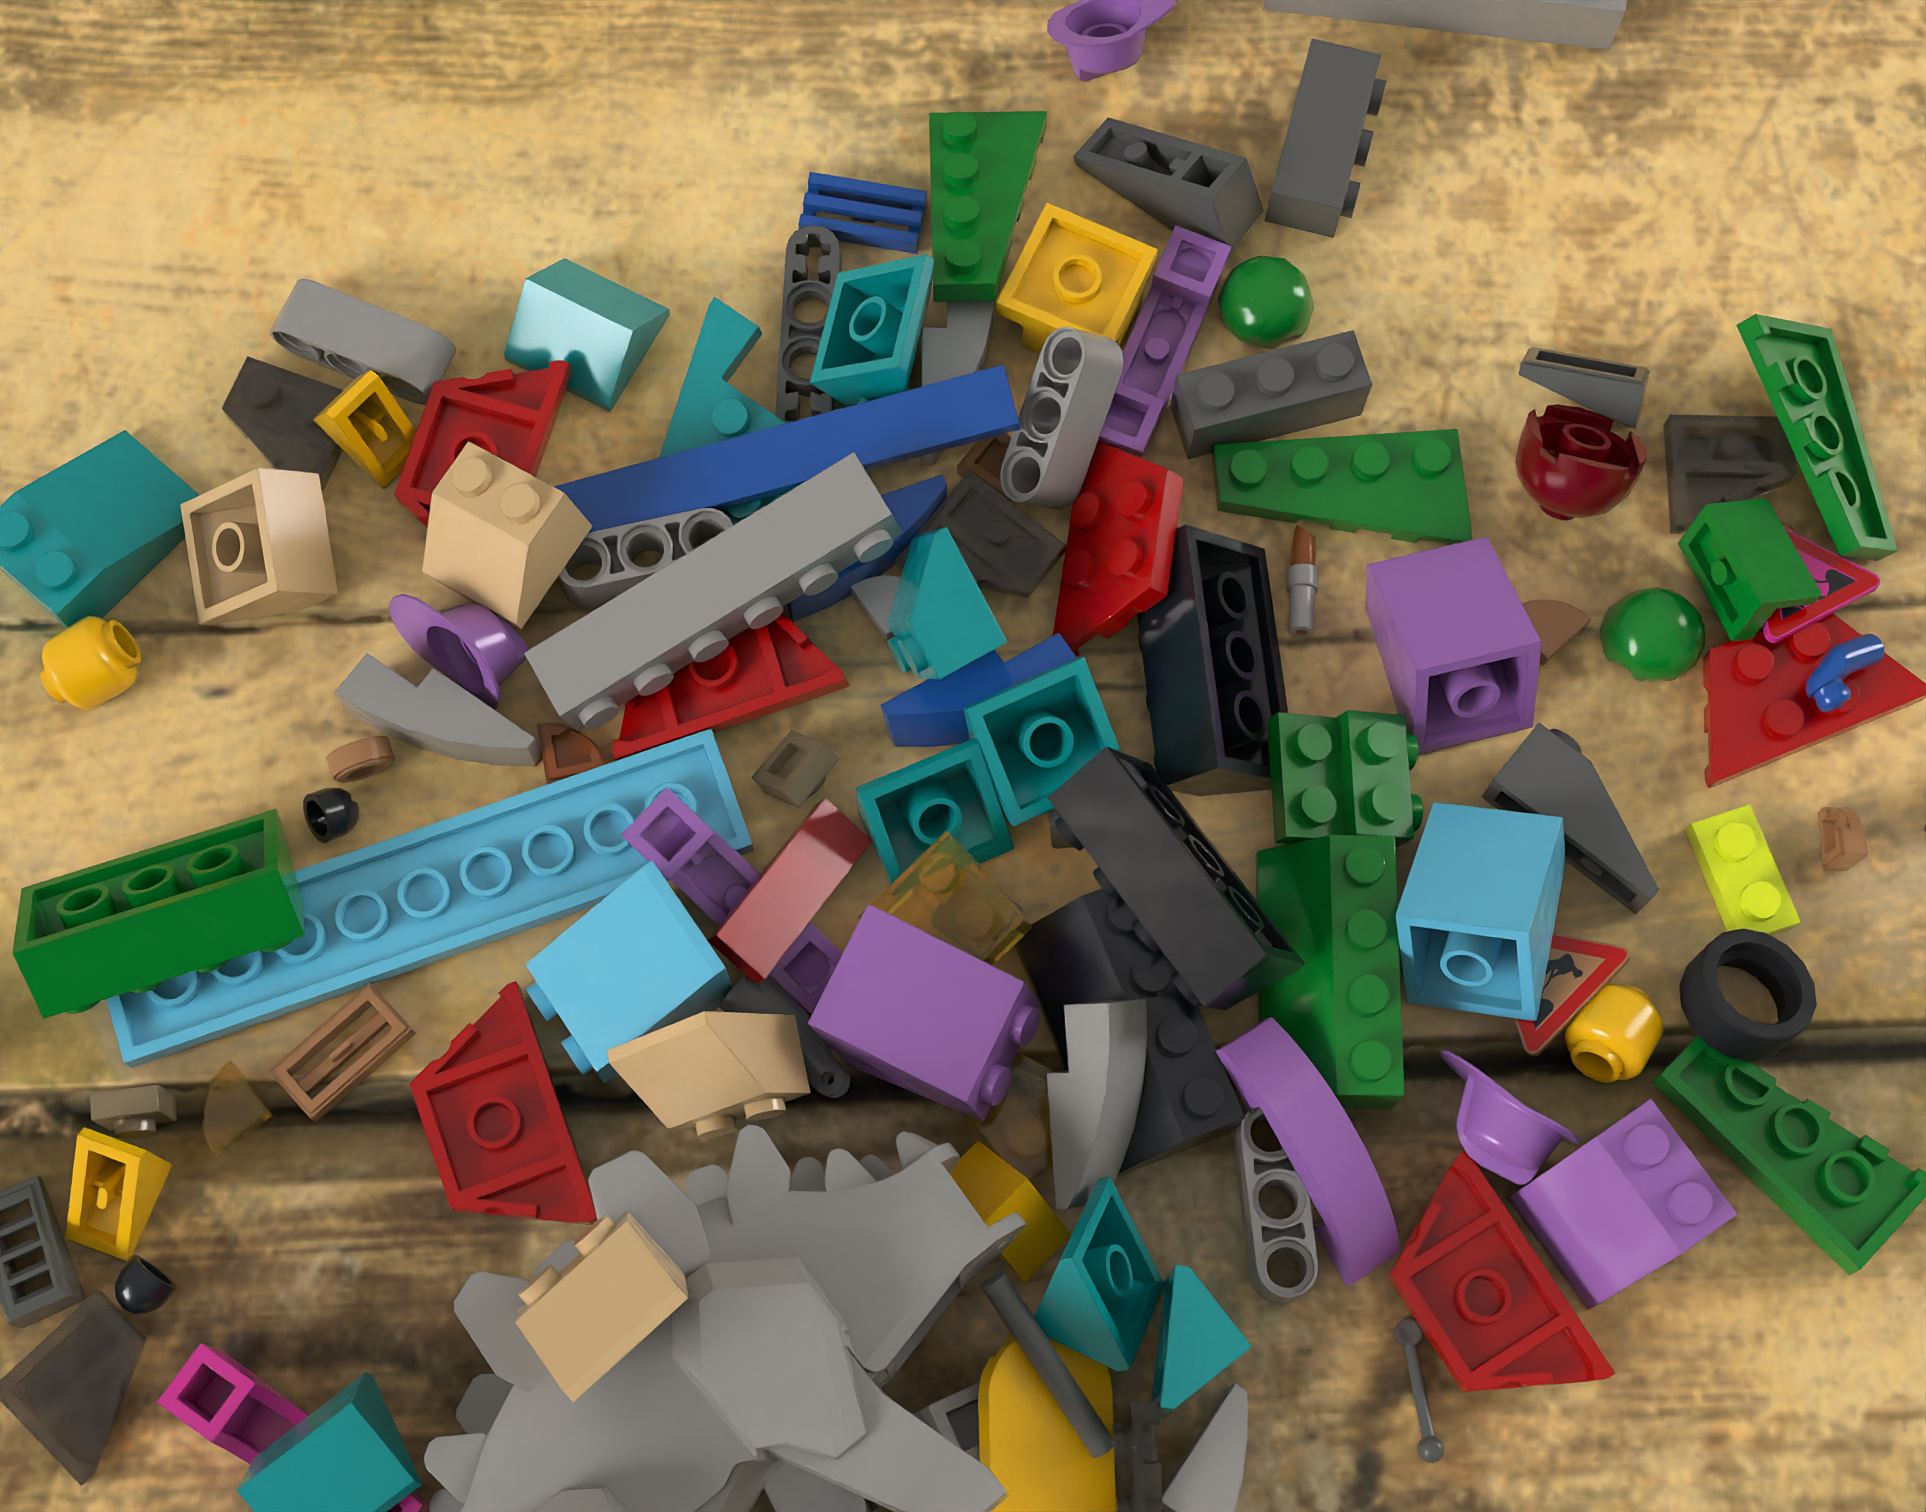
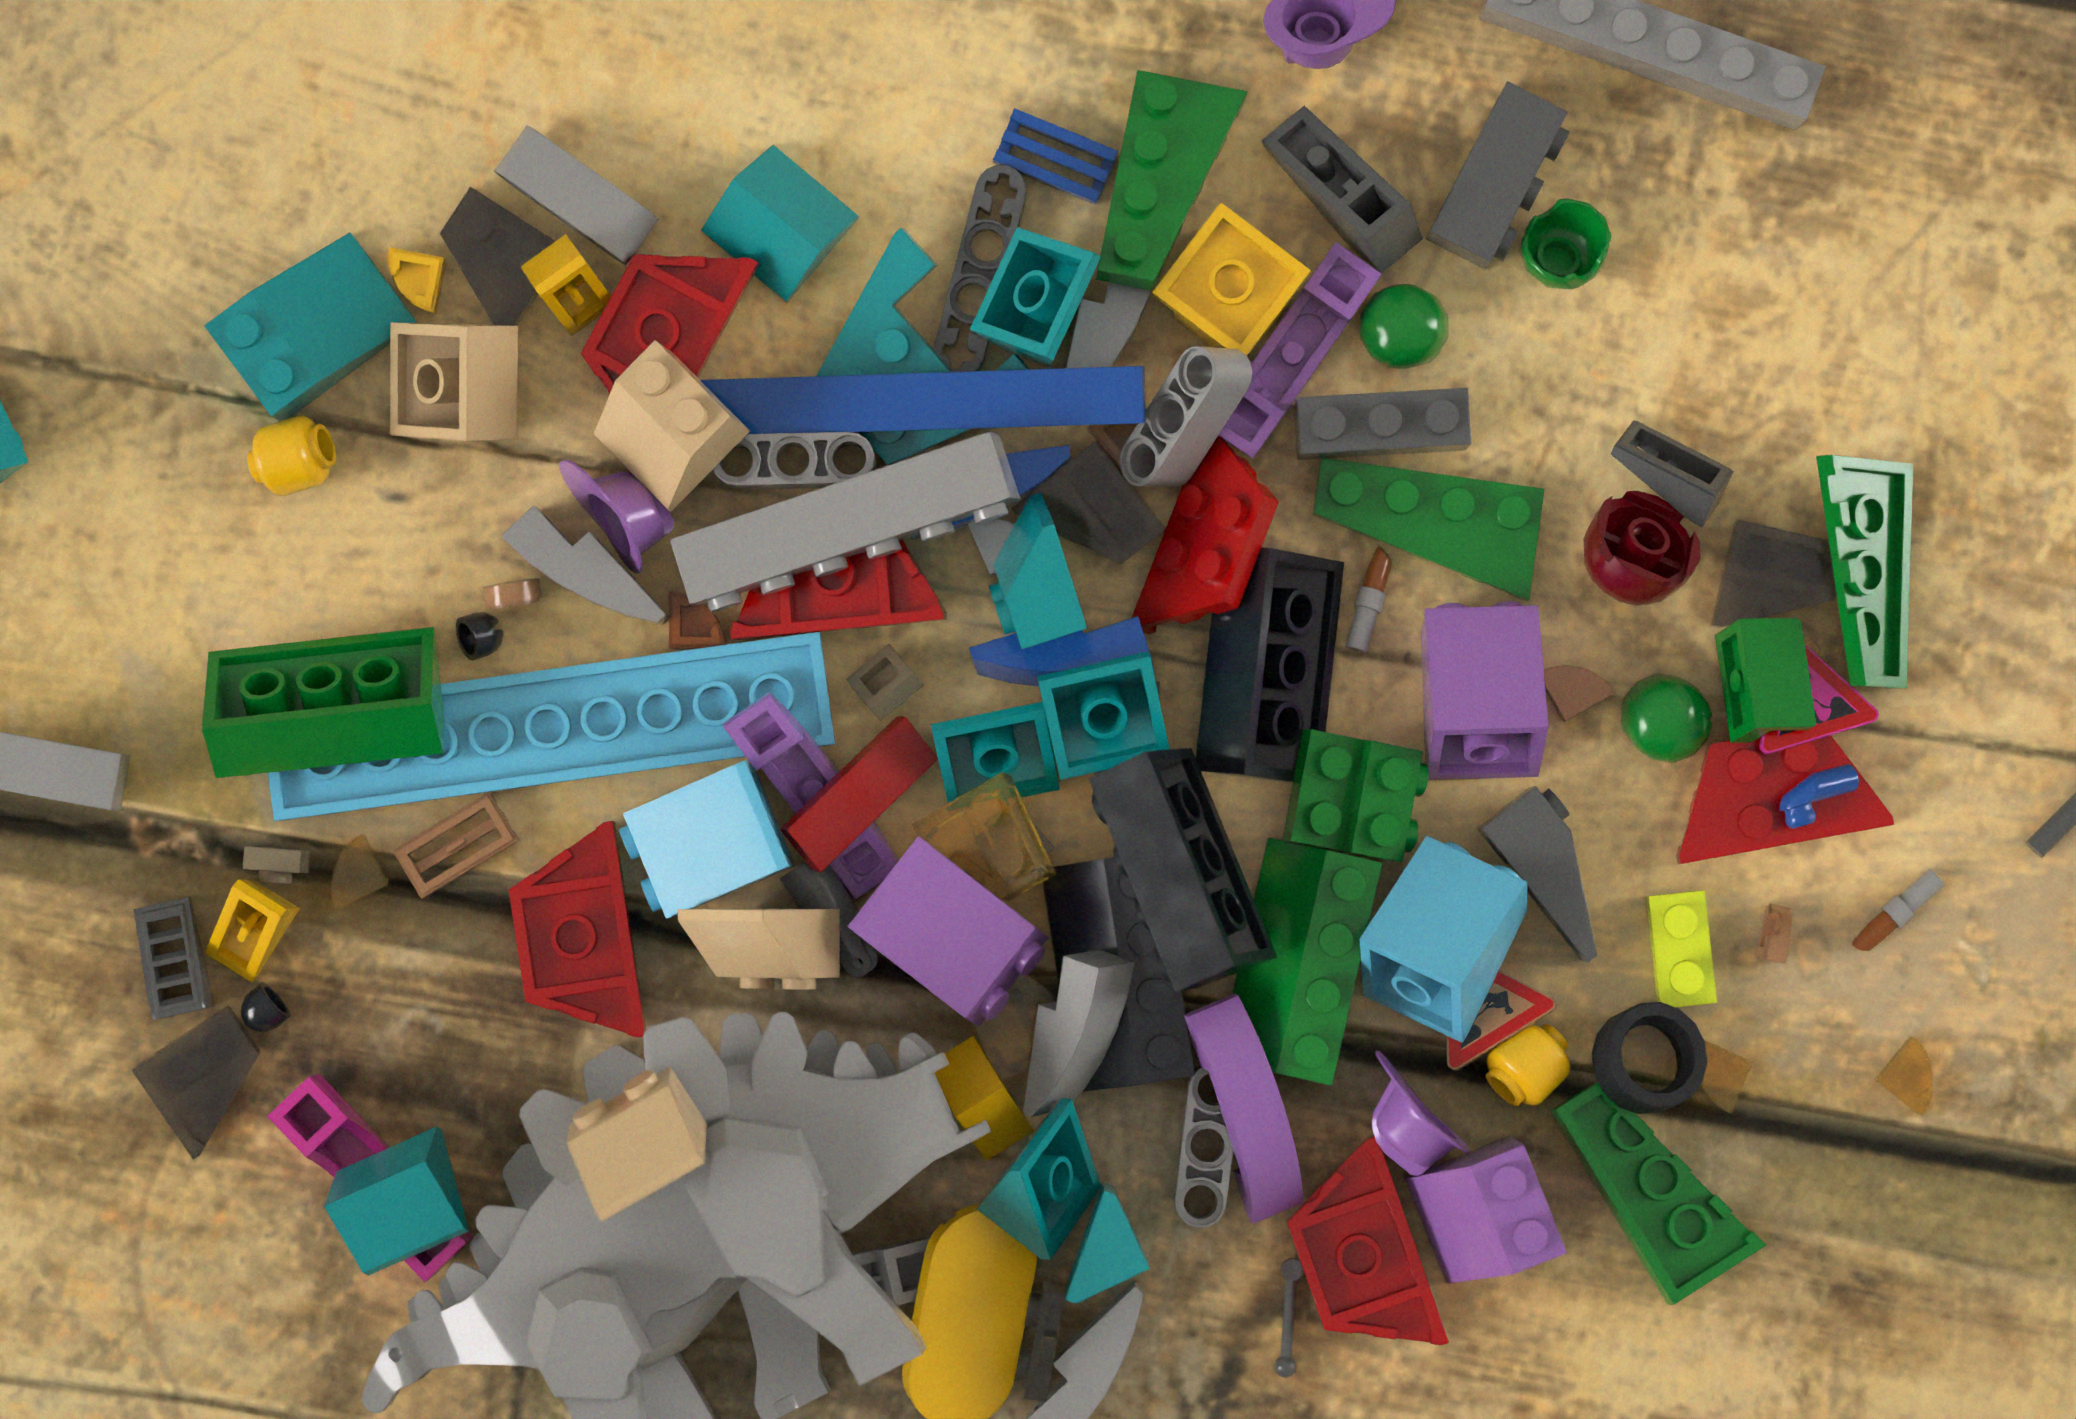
camera: 15 degrees right, 15 degrees up
(204, 457) = (417, 277): none -> yellow tile
(1048, 1364) = (985, 1241): dark grey bar -> none
(1414, 185) = (1566, 244): none -> green hair
(1836, 1005) = (1724, 1076): none -> clear yellow tile

